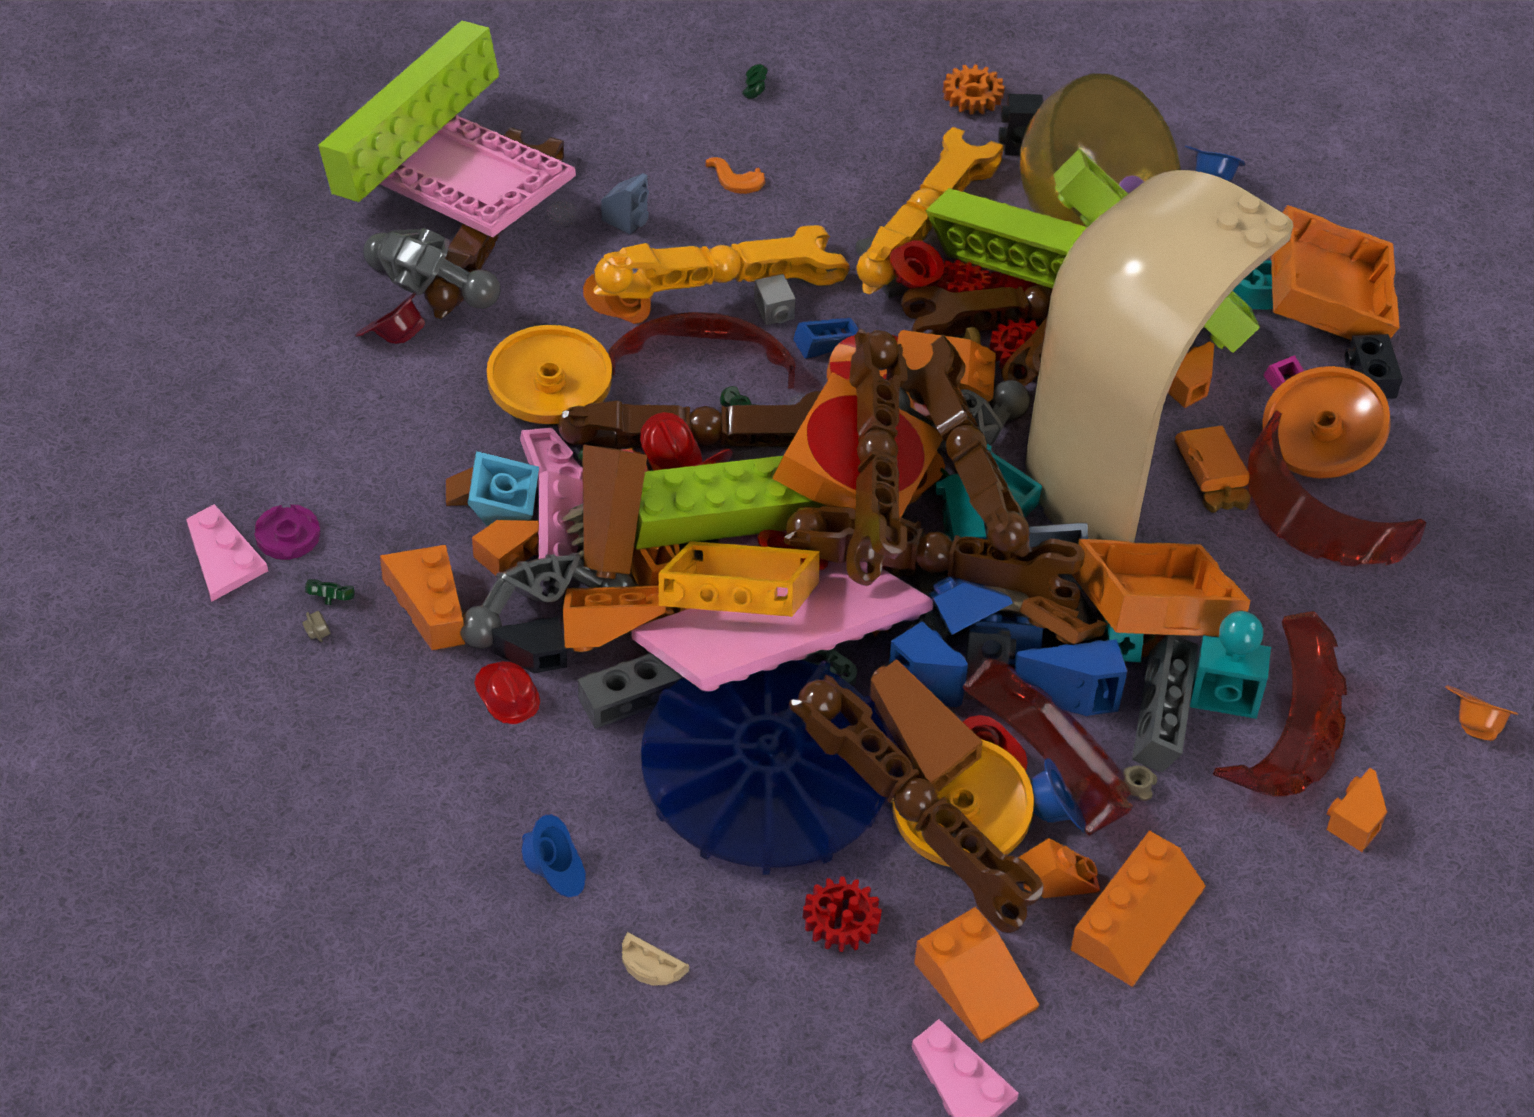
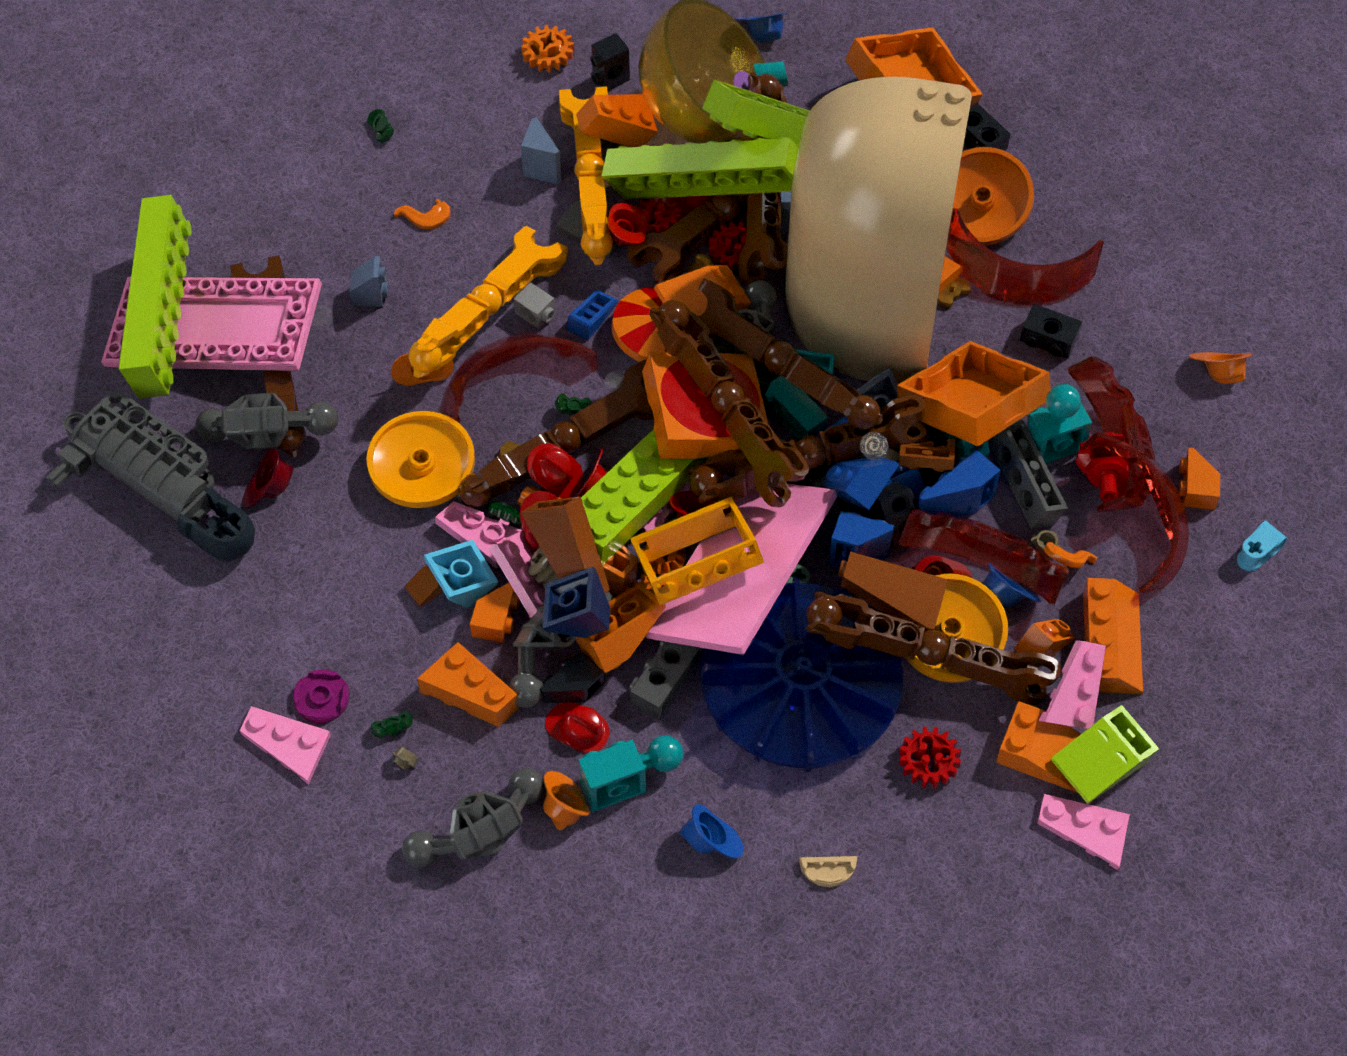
camera: 30 degrees left, 10 degrees up
(297, 256) = (155, 471): none -> dark grey piece
(332, 715) = (479, 822): none -> dark grey piece
(434, 743) = (563, 800): none -> orange piece
(502, 746) = (621, 770): none -> teal brick
(576, 563) = (576, 605): none -> dark blue slope
(882, 169) = (540, 155): none -> sand blue slope
(983, 169) = (618, 119): none -> orange wedge
(1001, 575) = (873, 445): none -> clear tile
(1032, 1013) = (1105, 754): none -> lime slope
(1047, 928) = (1077, 693): none -> bright pink wing
(1143, 802) = (1072, 560): none -> orange piece
(1261, 732) = (1103, 469): none -> red piece
(1304, 583) = (1043, 321): none -> black brick
(1306, 819) = (1166, 500): none -> clear red windscreen
(1383, 912) = (1260, 547): none -> medium azure piece

